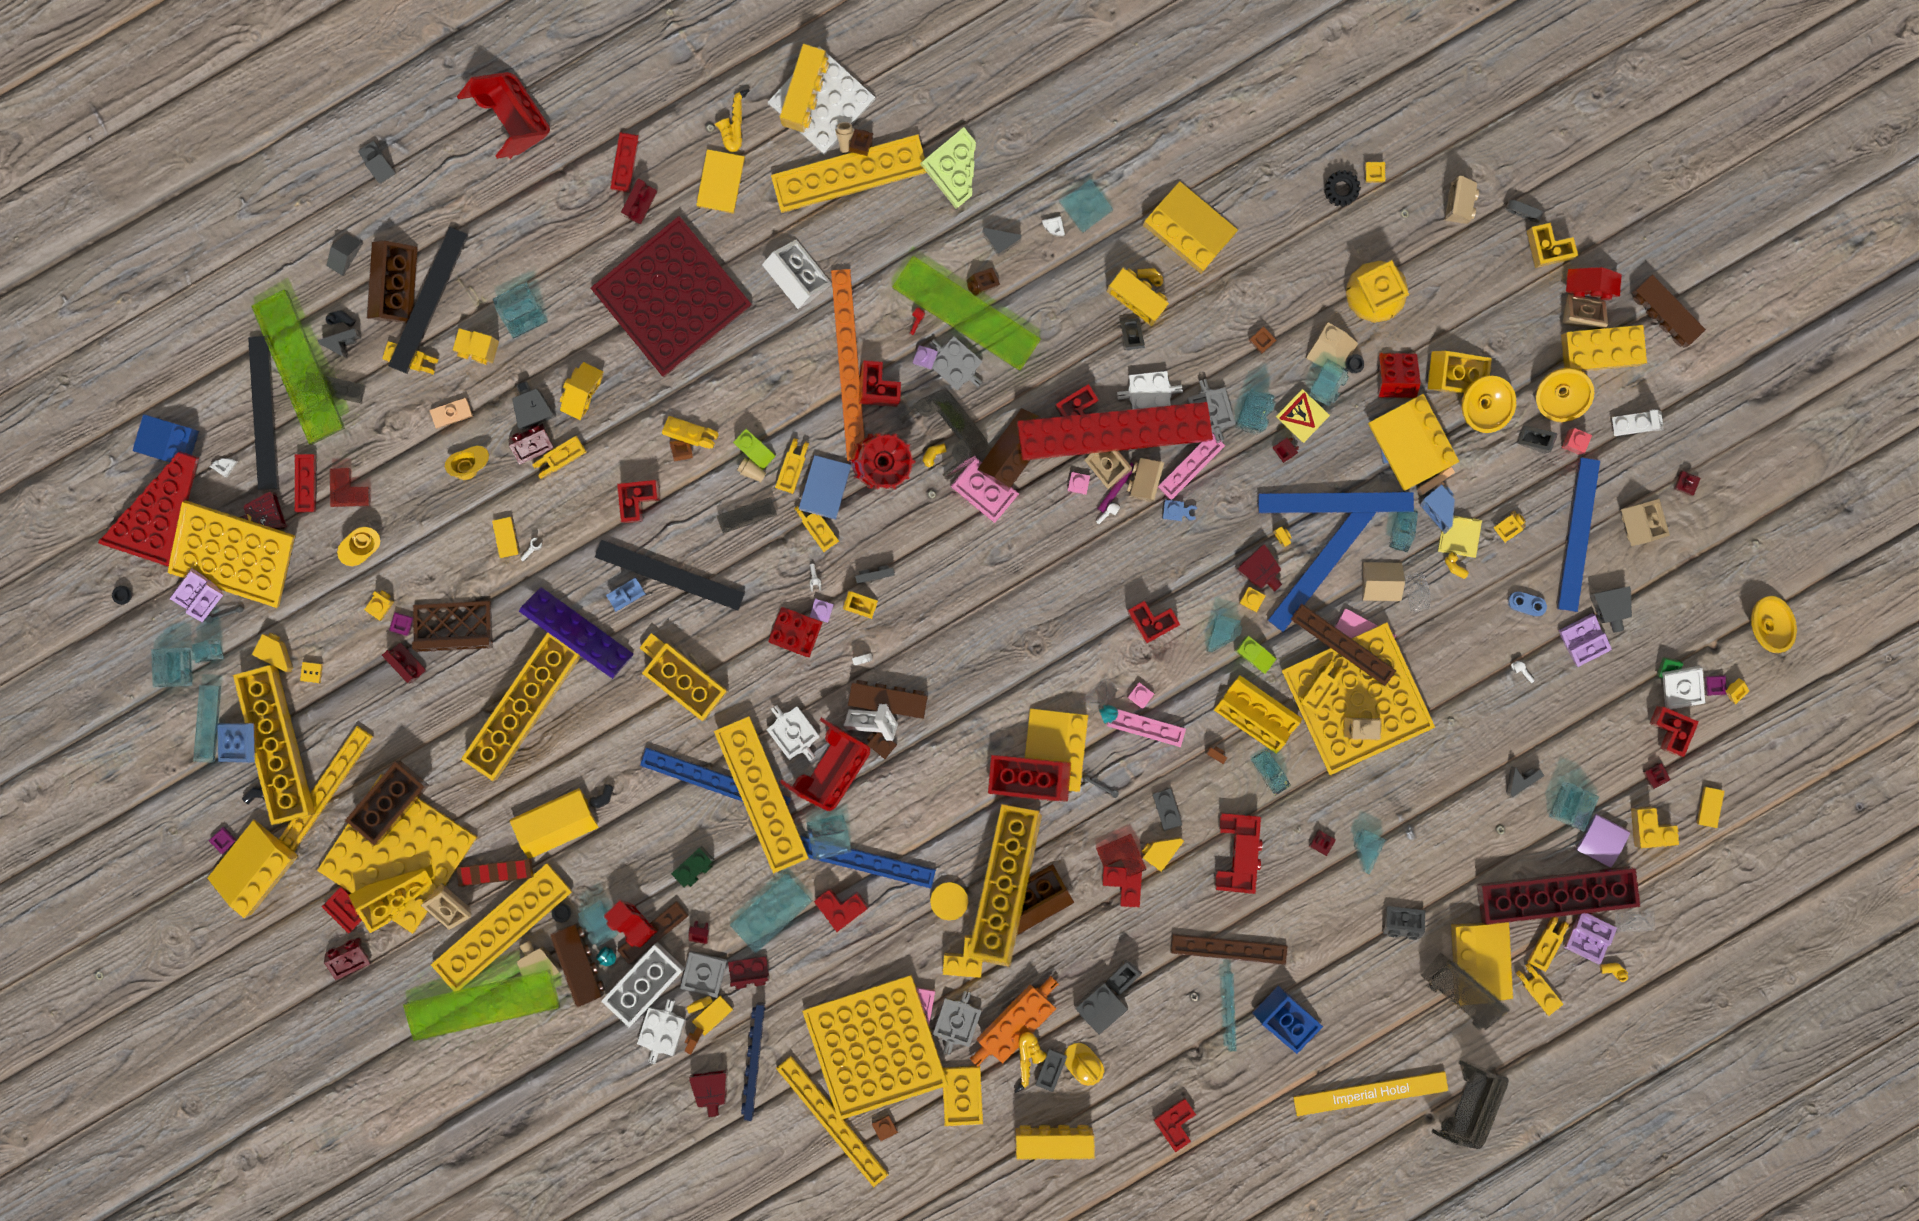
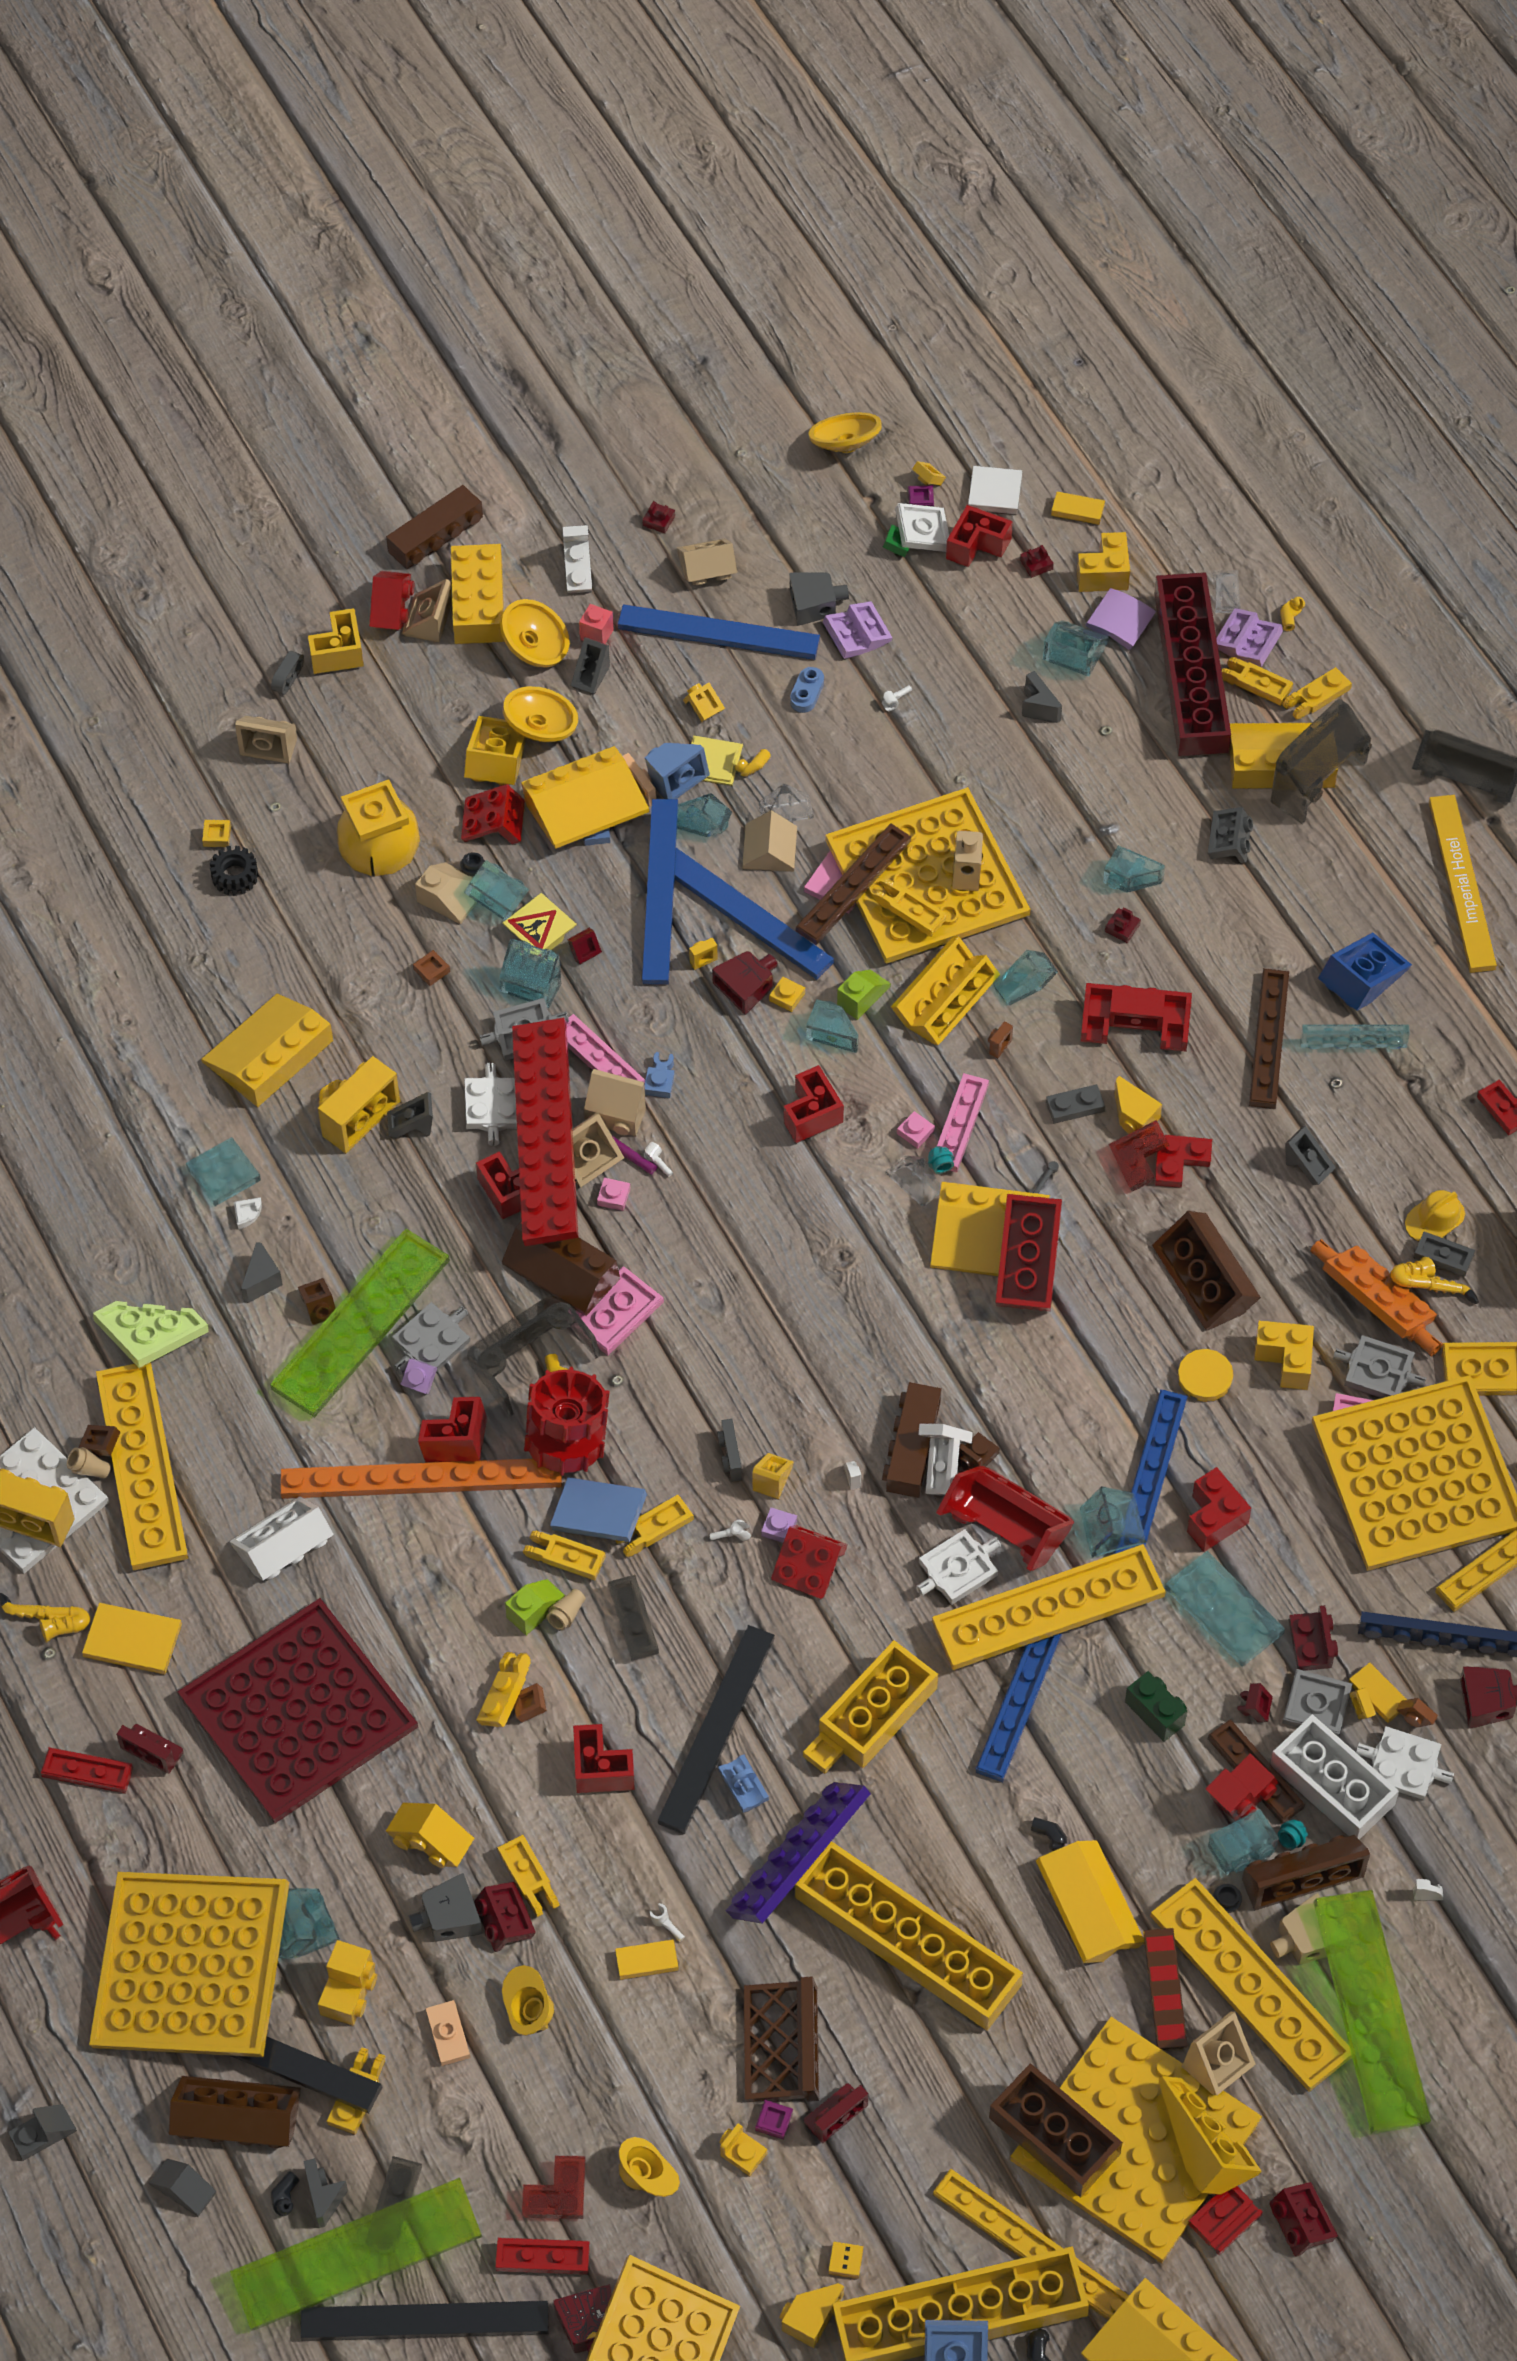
camera: 90 degrees left, 30 degrees down
(481, 243) = (190, 1964): none -> yellow plate
(570, 1043) = (1425, 1891): none -> white tile
(919, 314) = (357, 1382): red hand -> none
(1005, 885) = (1181, 1283): yellow brick -> none
(1100, 1007) = (1351, 1191): dark grey slope -> none
(1725, 743) = (995, 489): none -> white tile

